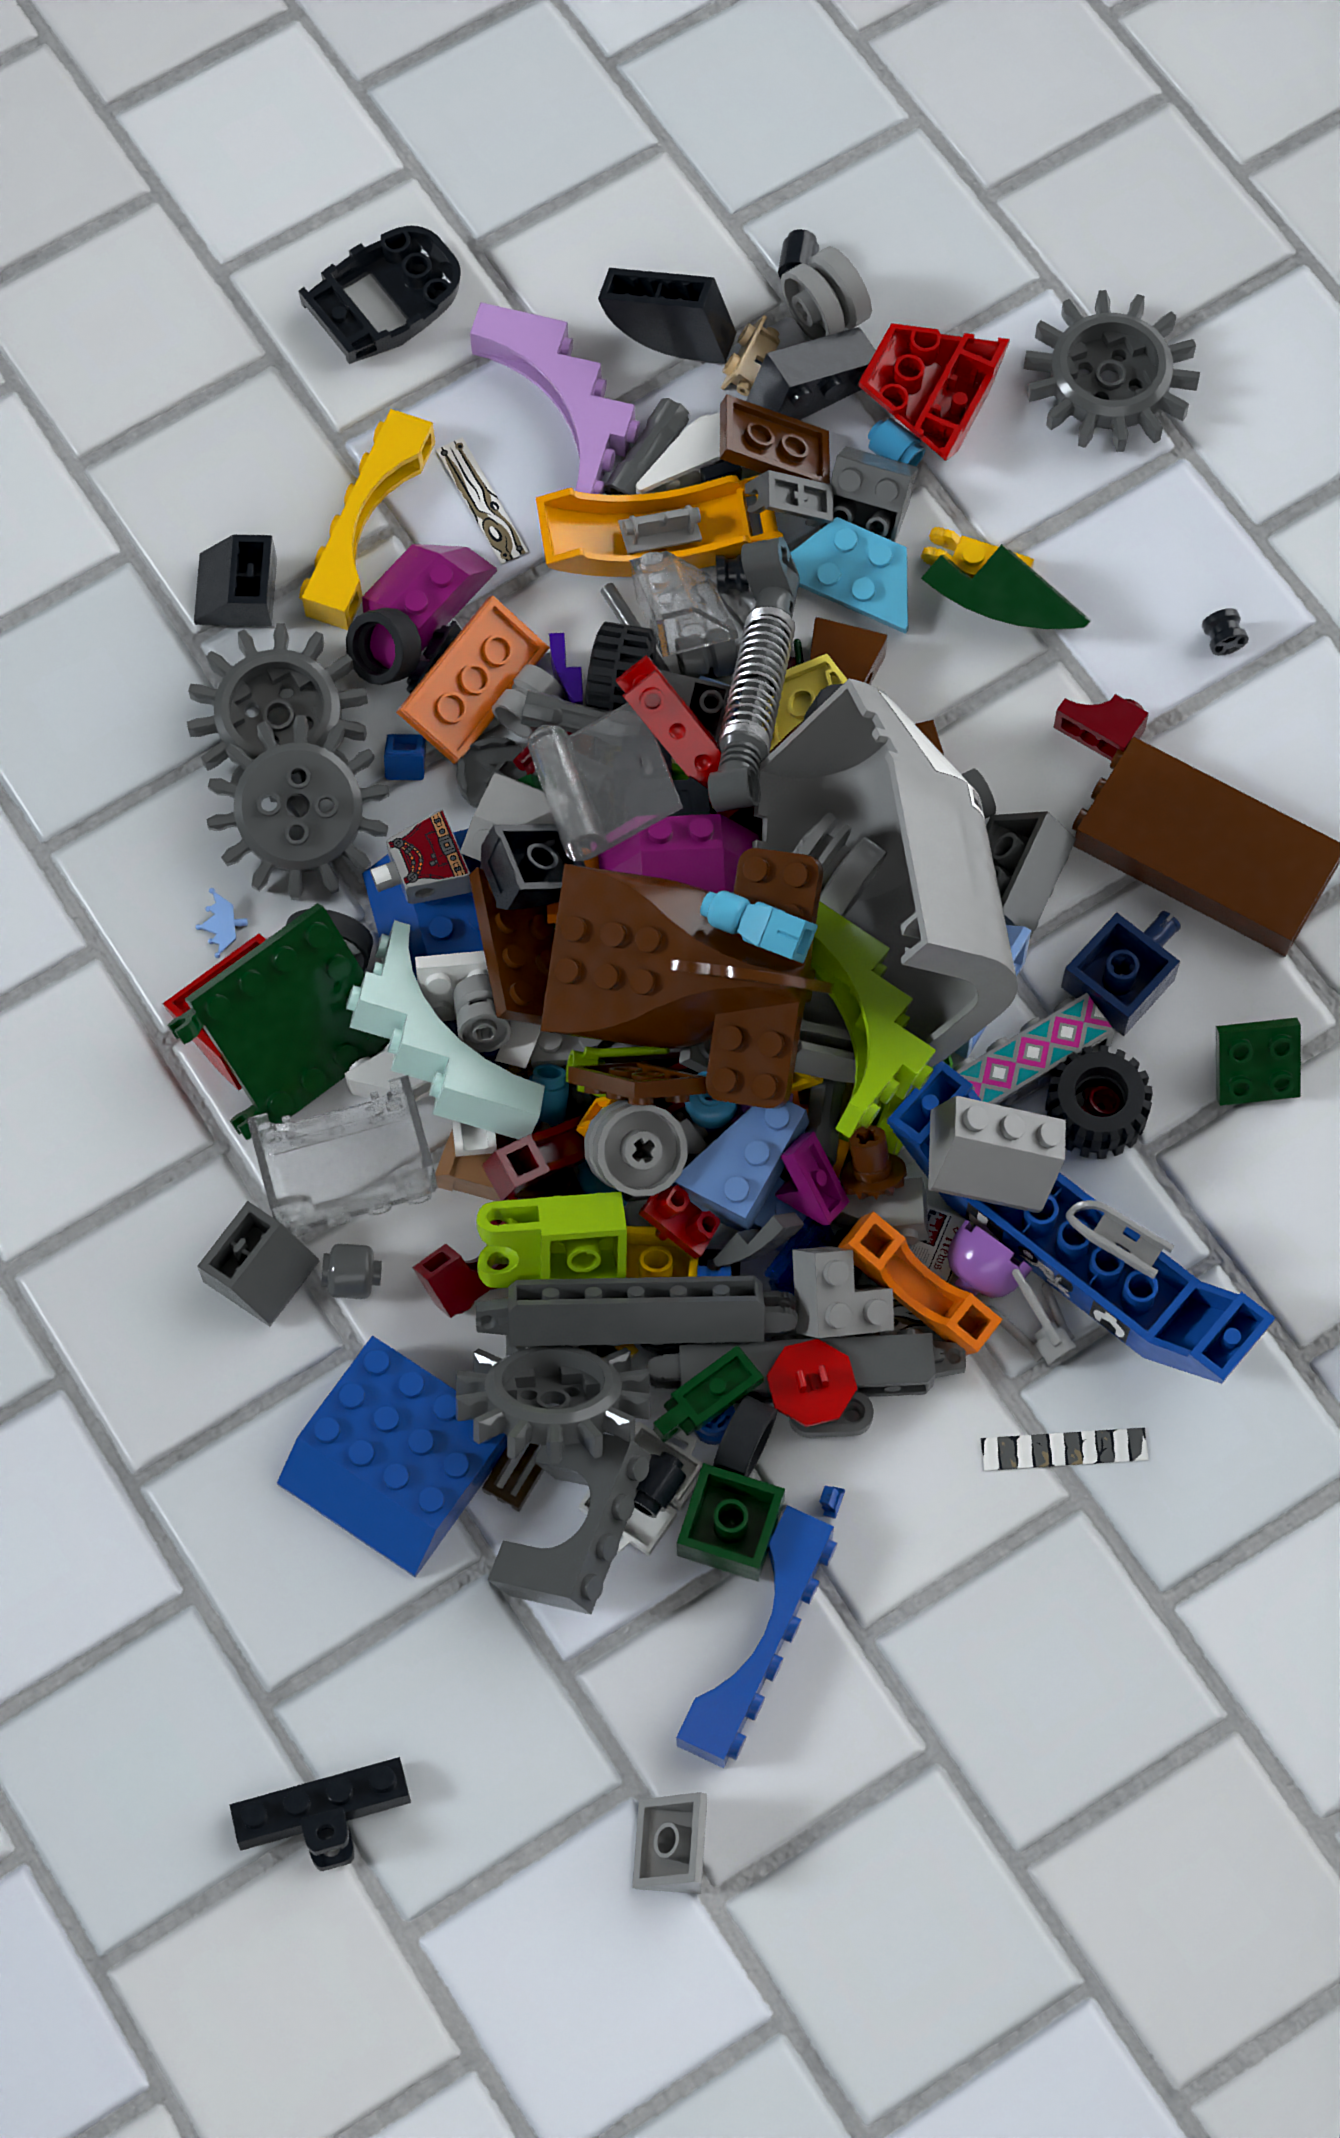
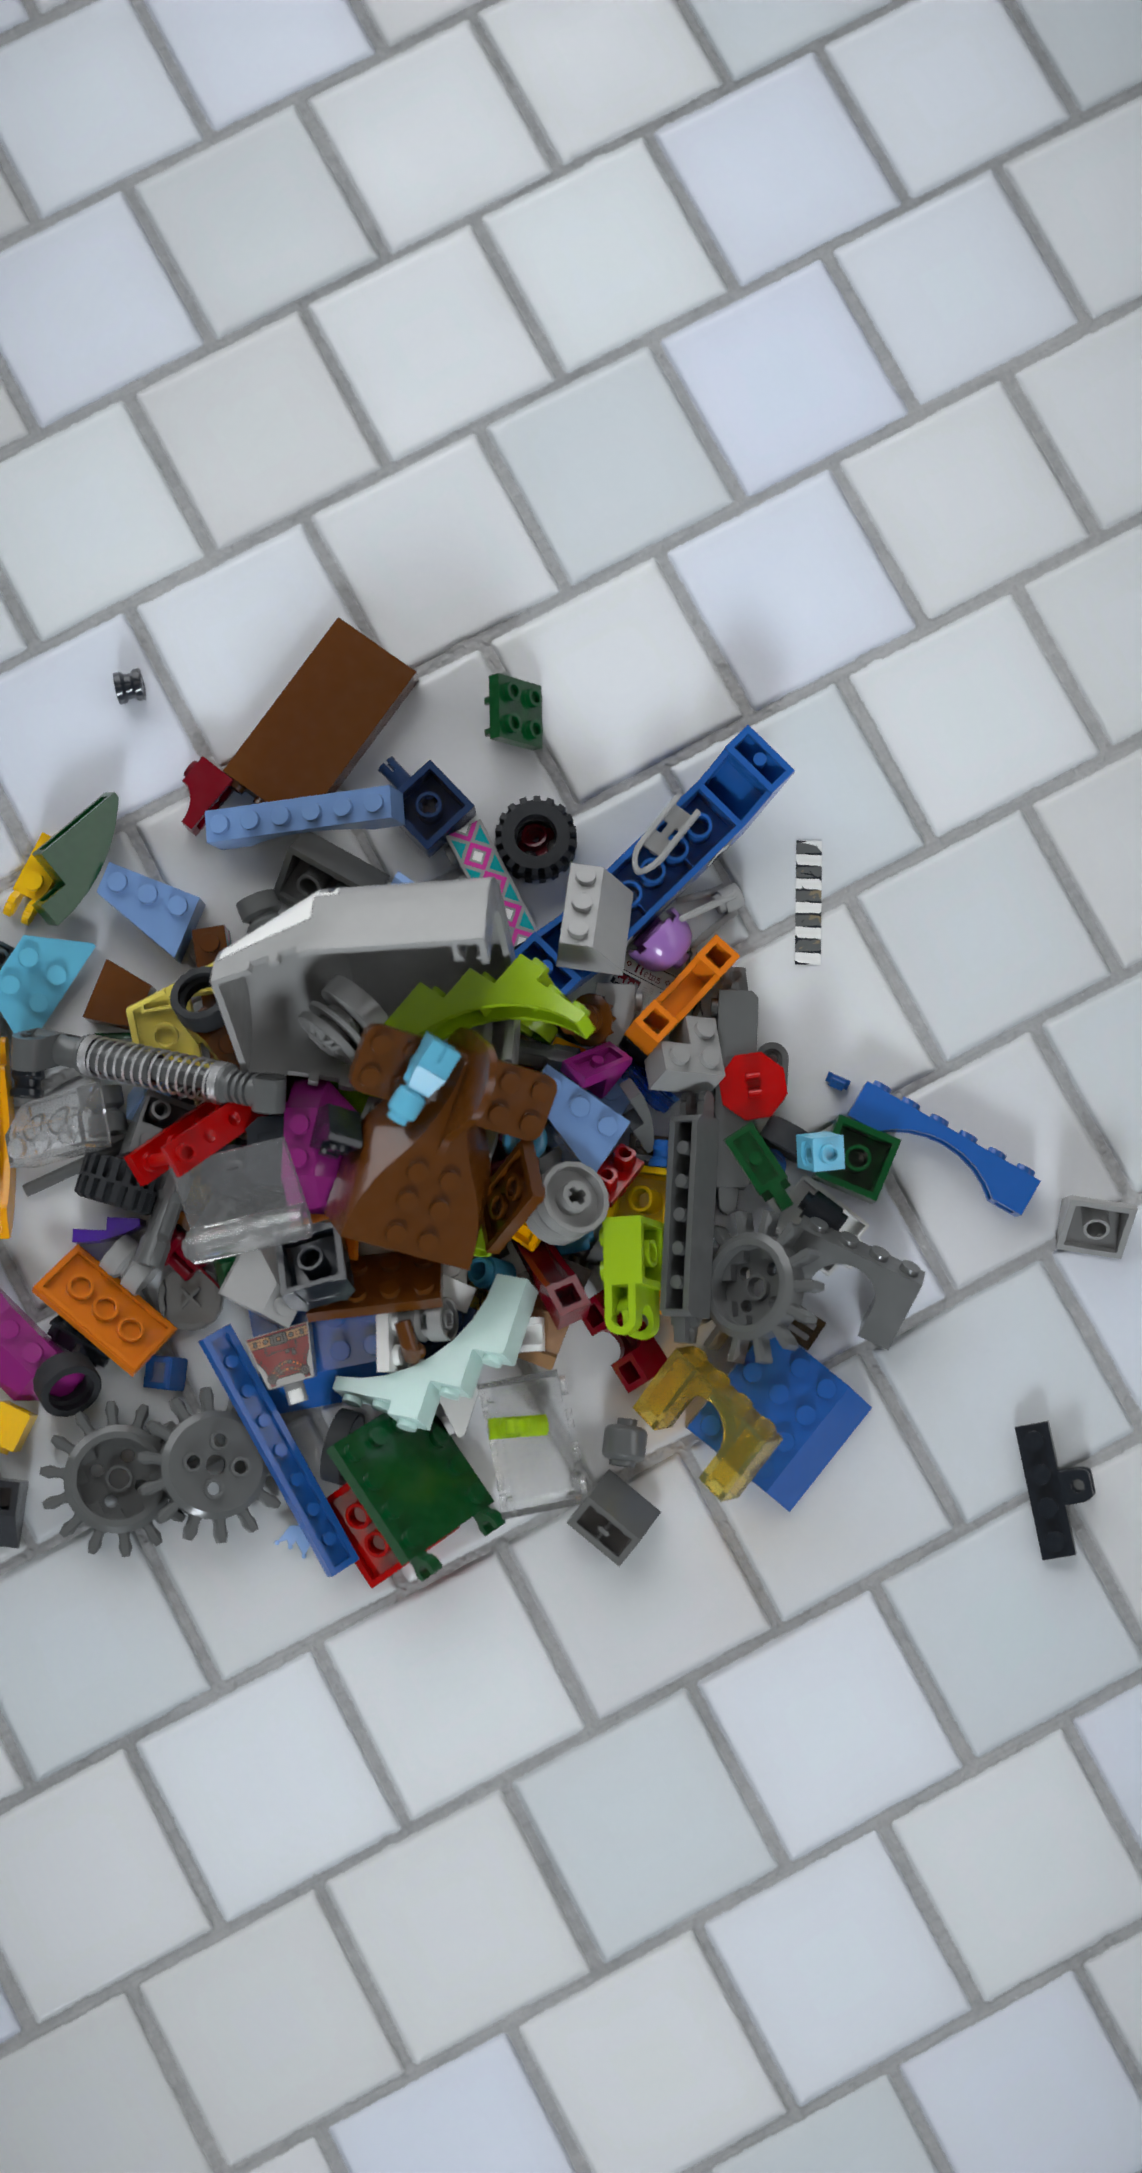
camera: 85 degrees left, 15 degrees up
(313, 877) = (279, 1450): none -> blue plate
(362, 1141) = (518, 1426): none -> lime bar
(364, 1390) = (747, 1435): none -> clear yellow arch
(442, 993) = (411, 1349): none -> reddish brown arm
(695, 862) = (336, 1131): none -> black slope
(730, 1455) = (820, 1151): none -> medium azure brick
(956, 680) = (153, 907): none -> medium blue wedge
(1099, 864) = (260, 822): none -> medium blue arch

